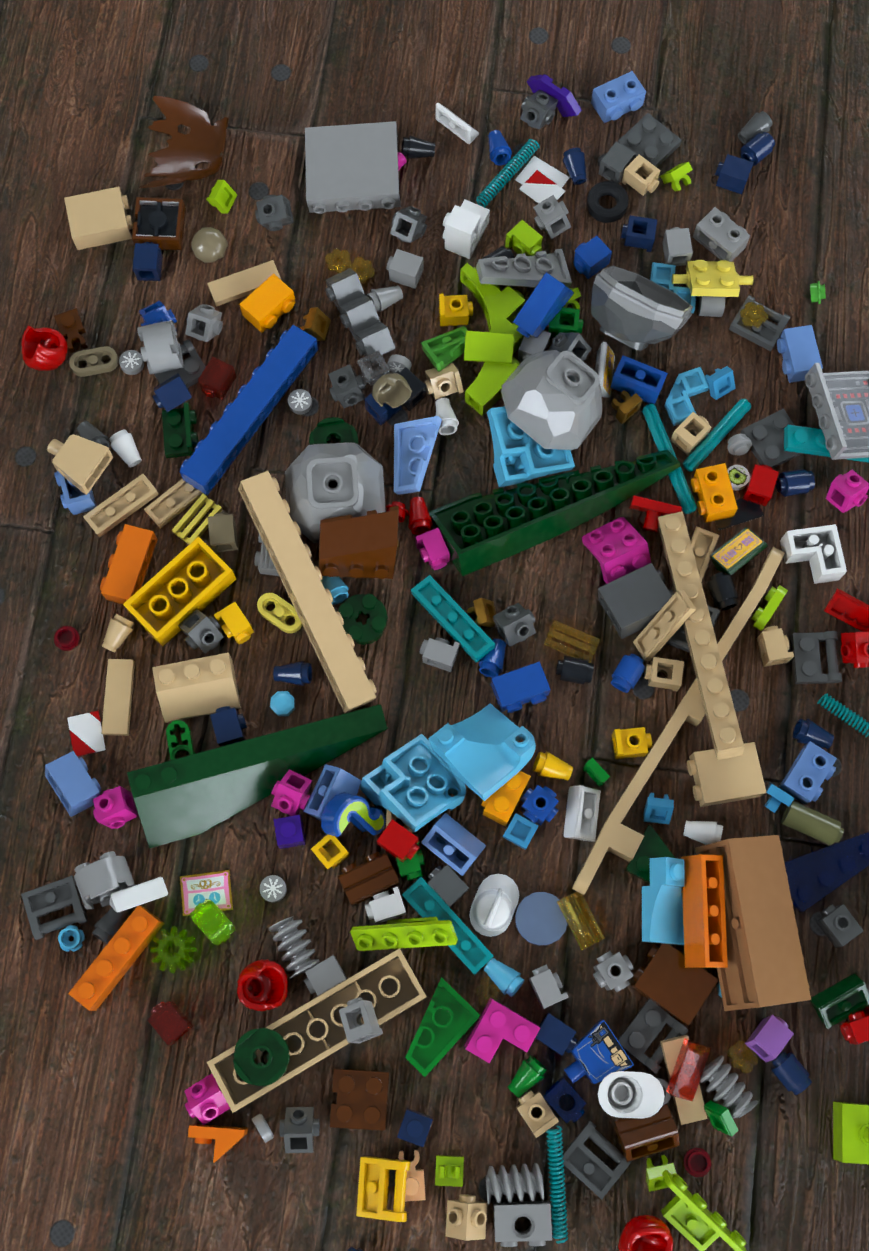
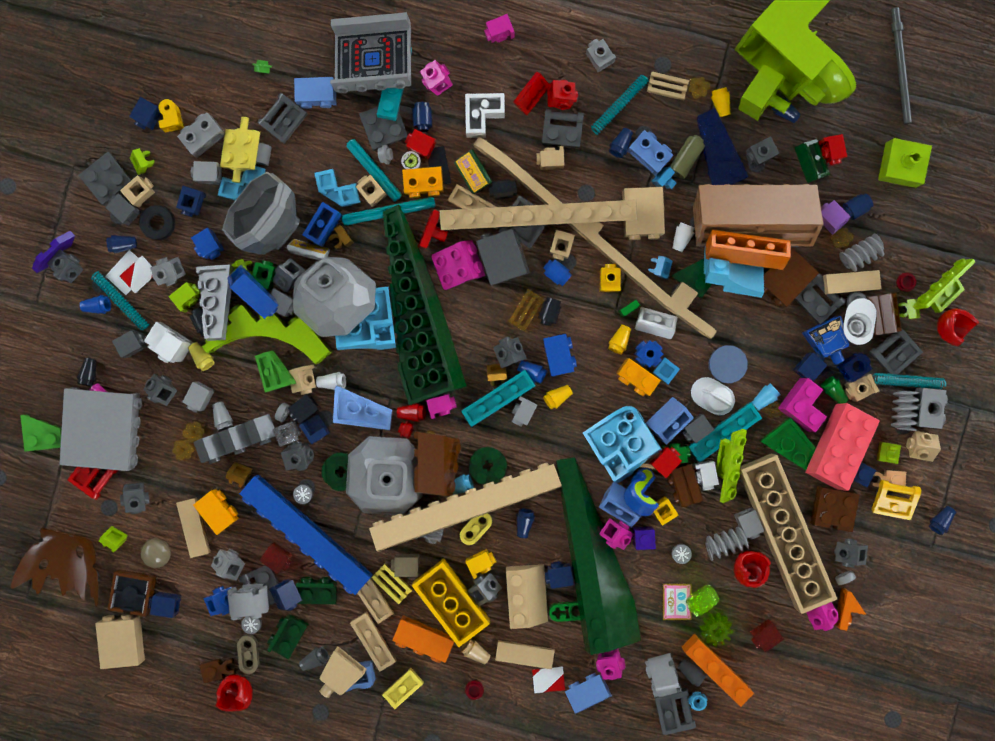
camera: 85 degrees left, 15 degrees up
(63, 548) = (402, 688): none -> light yellow plate
(120, 403) = (287, 637): none -> dark green bracket
(125, 447) = (326, 634): white cone -> none
(138, 894) = (678, 651): white slope -> none
(245, 1056) = (815, 577): dark green plate -> none
(282, 703) = (545, 533): medium azure tile -> none
(292, 157) = (84, 476): none -> red plate
(337, 105) = (39, 434): none -> bright green wing
(351, 1020) = (790, 505): light grey brick -> none
(391, 389) = (308, 421): dark tan hair -> none
(450, 268) = (201, 358): none -> light yellow cone
(450, 1094) = (842, 446): none -> coral brick
(454, 310) = (246, 361): yellow brick -> none
(455, 124) = (67, 337): white slope -> none
(457, 187) = (130, 343): none -> dark grey brick
(465, 695) = (557, 396): none -> yellow cone
(484, 750) = (604, 389): medium azure slope -> none
(488, 347) = (281, 340): lime slope -> none
(547, 987) = (777, 368): light grey brick -> none
(577, 921) = (734, 339): clear yellow tile -> none
(605, 978) = (766, 319): light grey brick -> none
(618, 97) = (61, 197): medium blue brick -> none
(664, 625) = (528, 240): tan tile -> none
(688, 1070) = (848, 278): clear red slope -> none
(720, 1118) = (882, 261): green tile -> none
(721, 382) = (331, 159): dark azure tile -> none
(736, 201) = (171, 116): none -> yellow leg
(753, 319) = (280, 125): clear yellow plant -> none
(757, 124) = (104, 87): dark grey cone -> none
(758, 148) = (124, 90): dark blue brick -> none
(764, 614) = (514, 151): lime plate -> none

